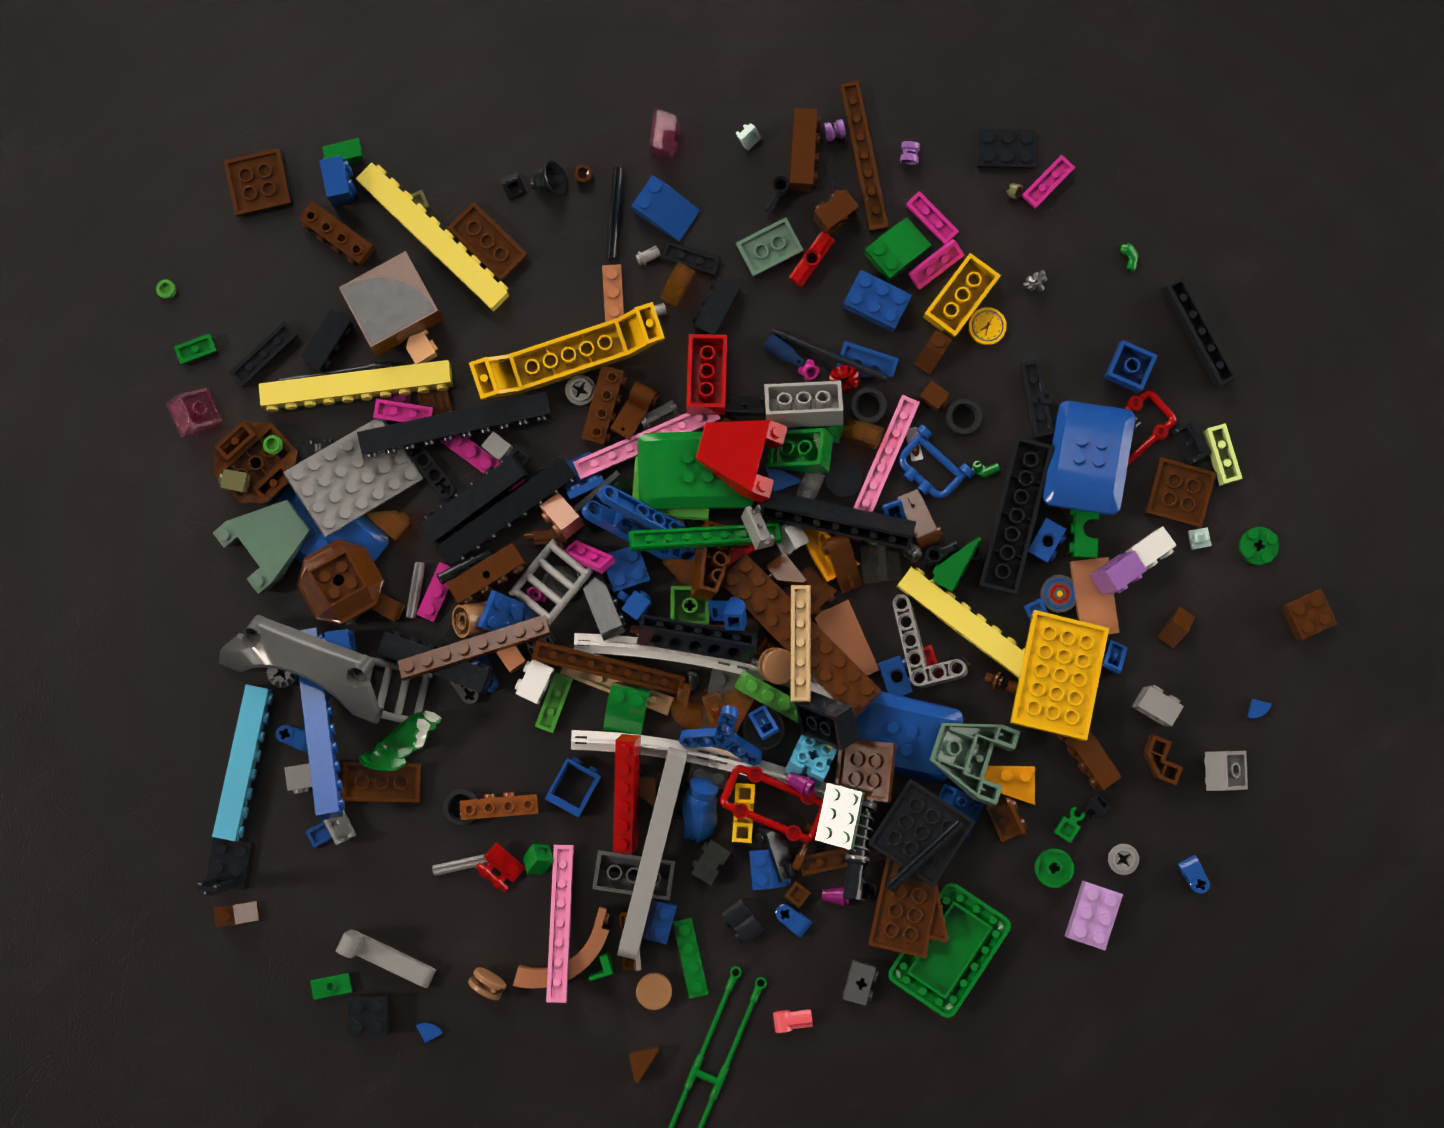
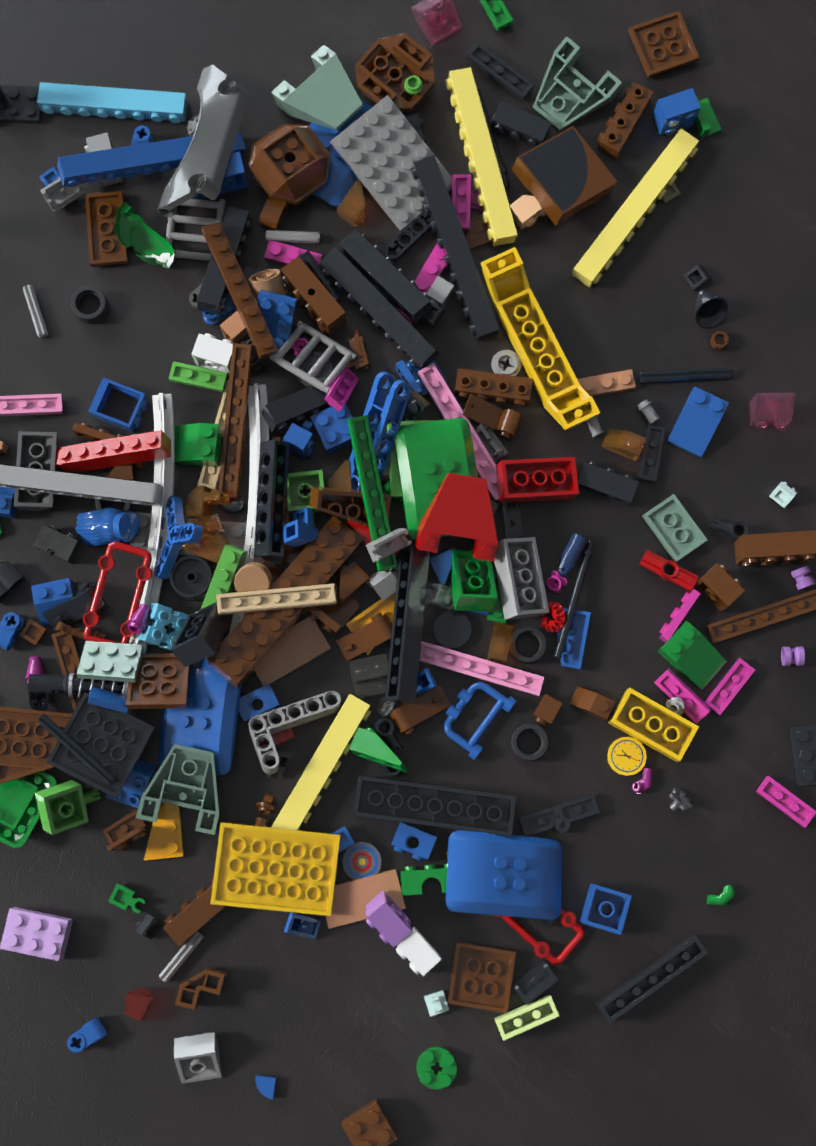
camera: 80 degrees right, 5 degrees down
(234, 481) = (373, 55): olive brick -> none
(299, 287) = (567, 94): none -> sand green wedge
(487, 241) = (639, 259): reddish brown plate -> none
(494, 806) = (92, 336): dark orange bracket -> none
(504, 862) = (40, 349): red plate -> none
(538, 859) = (46, 381): green panel -> none
(561, 515) = (382, 355): nougat piece -> none
(604, 808) = (85, 431): none -> reddish brown plate
(743, 827) = (124, 569): yellow arch -> none
(763, 722) = (194, 574): blue slope -> none
(856, 255) = (678, 615): none -> dark pink plate
(876, 301) = (635, 640): blue brick -> none
(878, 820) = (108, 699): none -> blue tile
(916, 454) = (486, 699): white sticker -> none
(942, 269) = (678, 702): none -> light grey plate
(976, 875) = (64, 806): none -> bright green brick
(984, 471) = (478, 769): green arm -> none
(1014, 312) = (644, 783): none -> magenta arm
(1015, 191) = (770, 768): olive hinge -> none
(1062, 860) = (72, 894): green plate -> none
(1130, 778) = (181, 956): none -> light grey axle
(1132, 860) = (87, 959): light grey gear -> none
(1158, 706) = (255, 976): light grey brick -> none
(1170, 822) = (138, 1003): none -> clear red brick
(1176, 627) = (341, 989): reddish brown slope -> none

